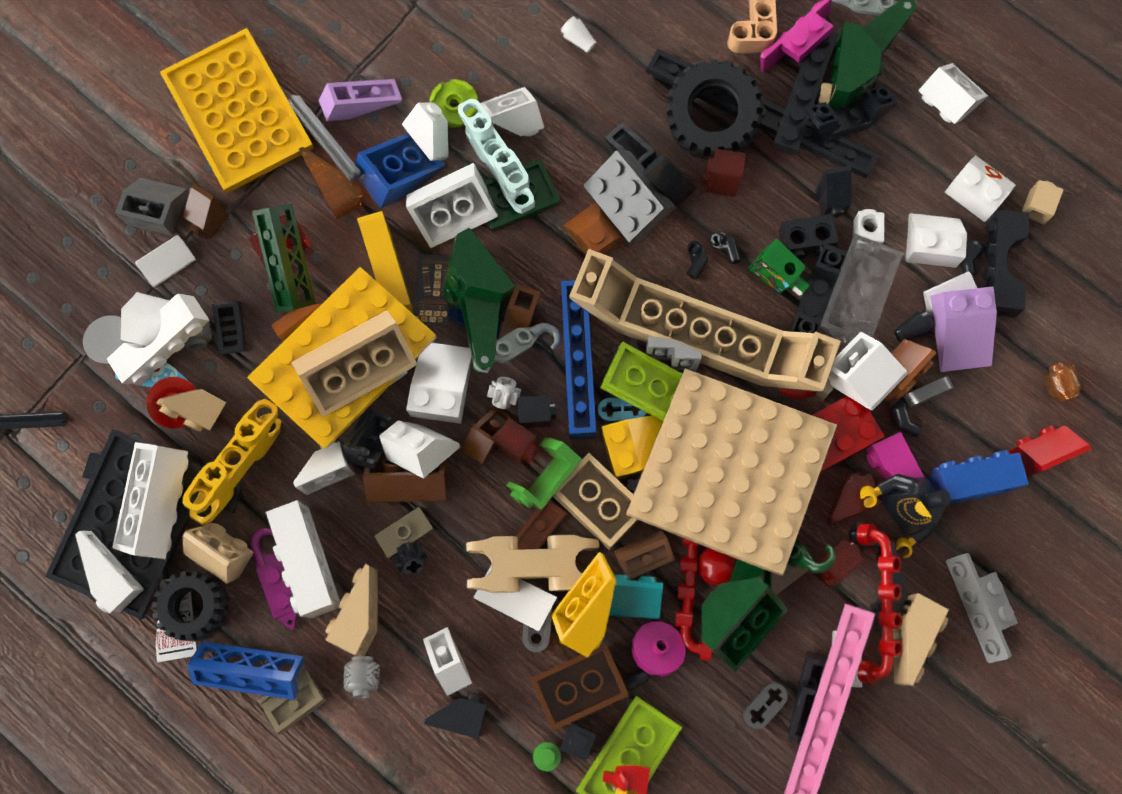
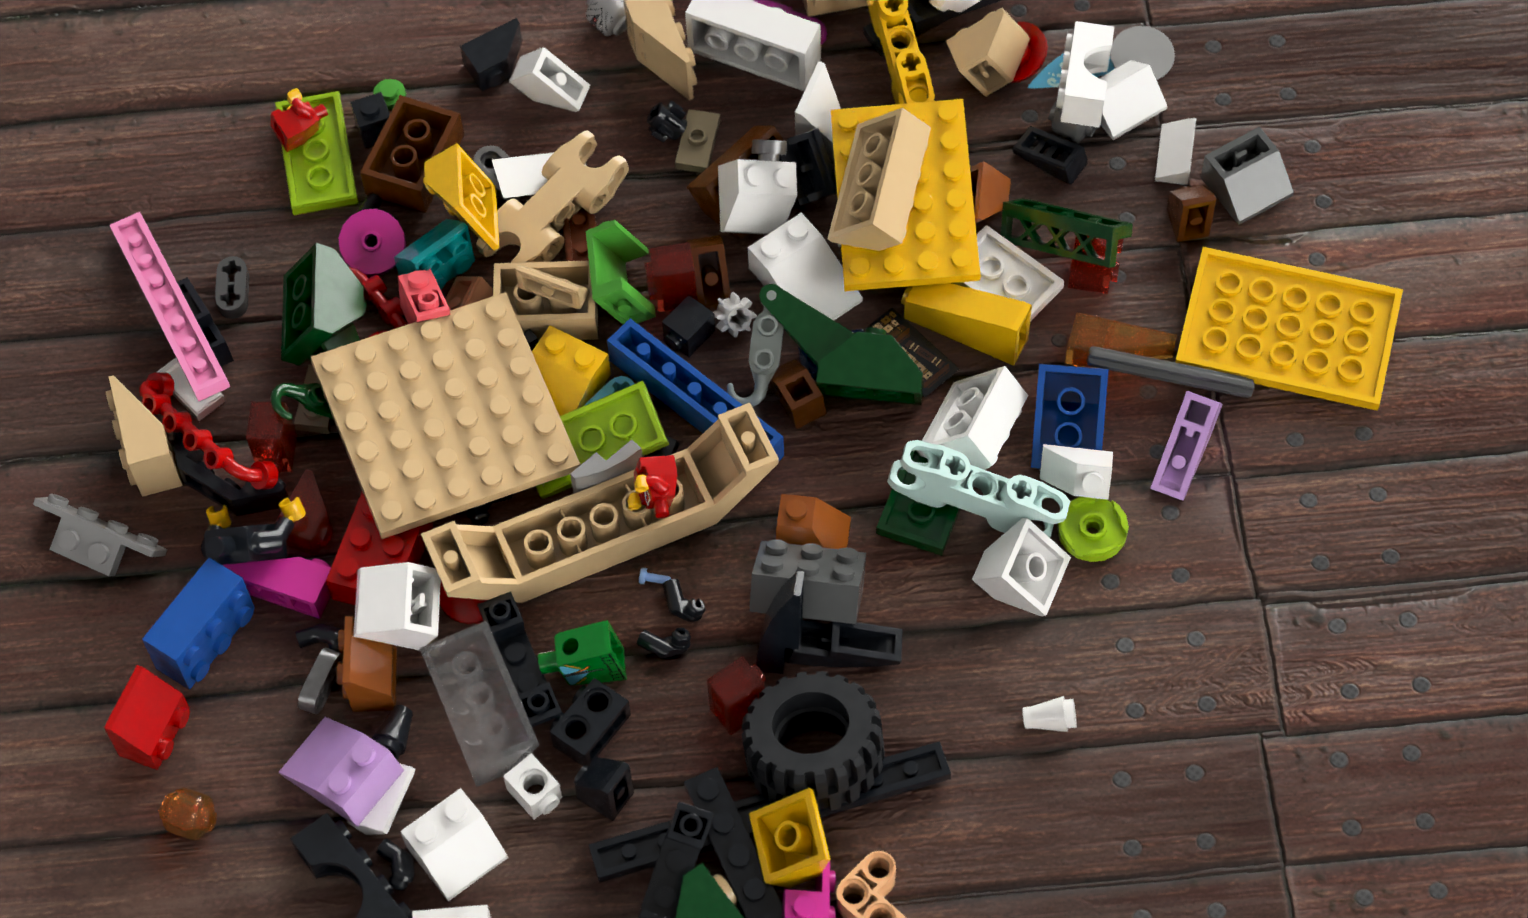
camera: 135 degrees right, 15 degrees down
(335, 263) = (1013, 273): none -> white plate
(386, 453) = (769, 149): none -> flat silver plate
(593, 493) = (551, 287): none -> tan slope
(661, 306) = (654, 484): none -> red piece
(676, 558) = (421, 297): none -> coral slope
(701, 293) = (651, 577): none -> light blue piece
(776, 71) = (790, 840): none -> yellow slope

